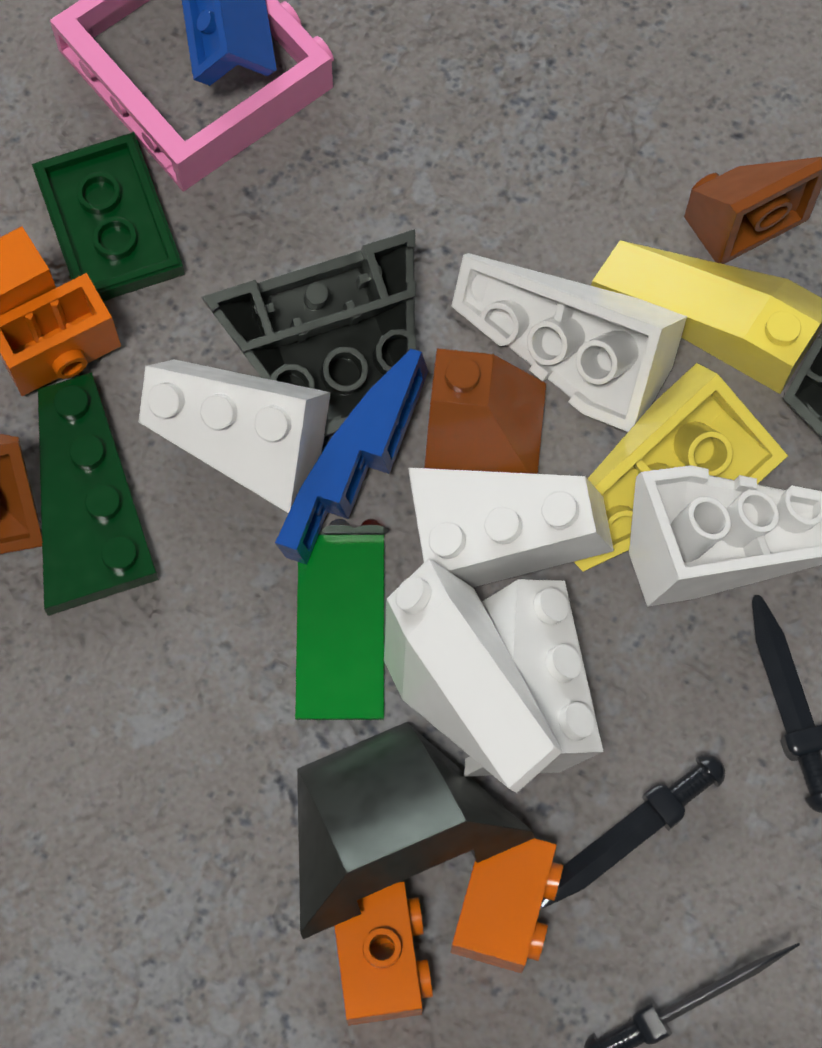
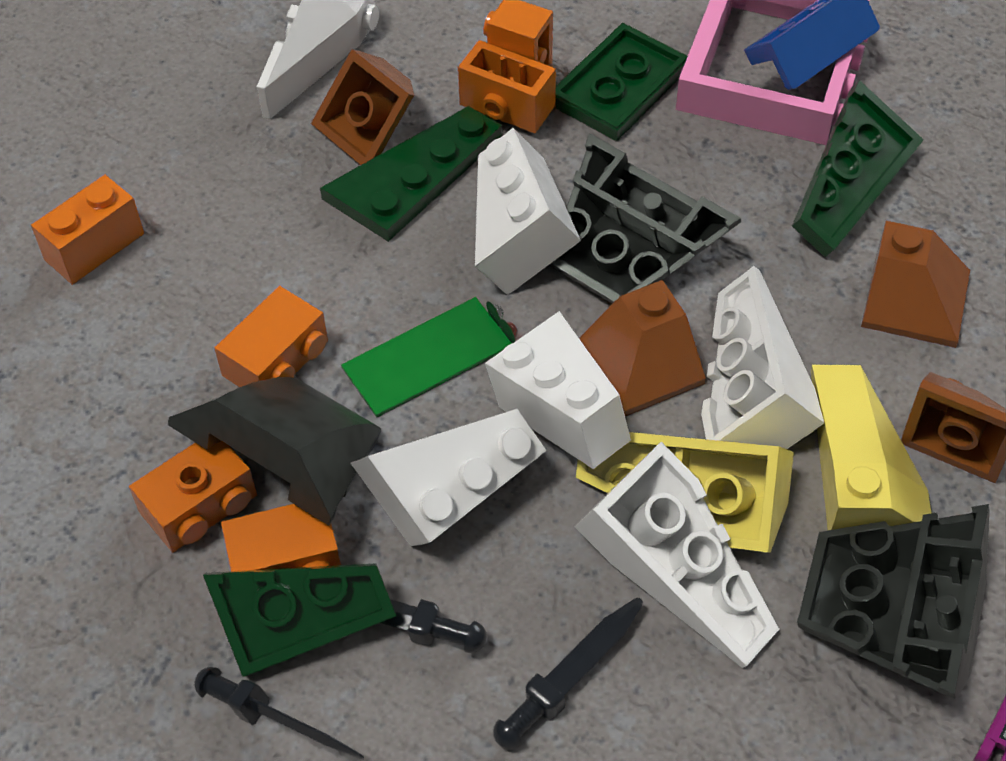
camera: 60 degrees right, 15 degrees down
(237, 774) = (272, 340): none -> orange brick
(364, 440) = (564, 279): blue slope -> none
(399, 84) = (855, 167): none -> dark green wing
(462, 676) = (427, 402): white wedge -> none
(568, 135) = (916, 286): none -> dark orange slope
(592, 922) = (295, 610): none -> dark green wing

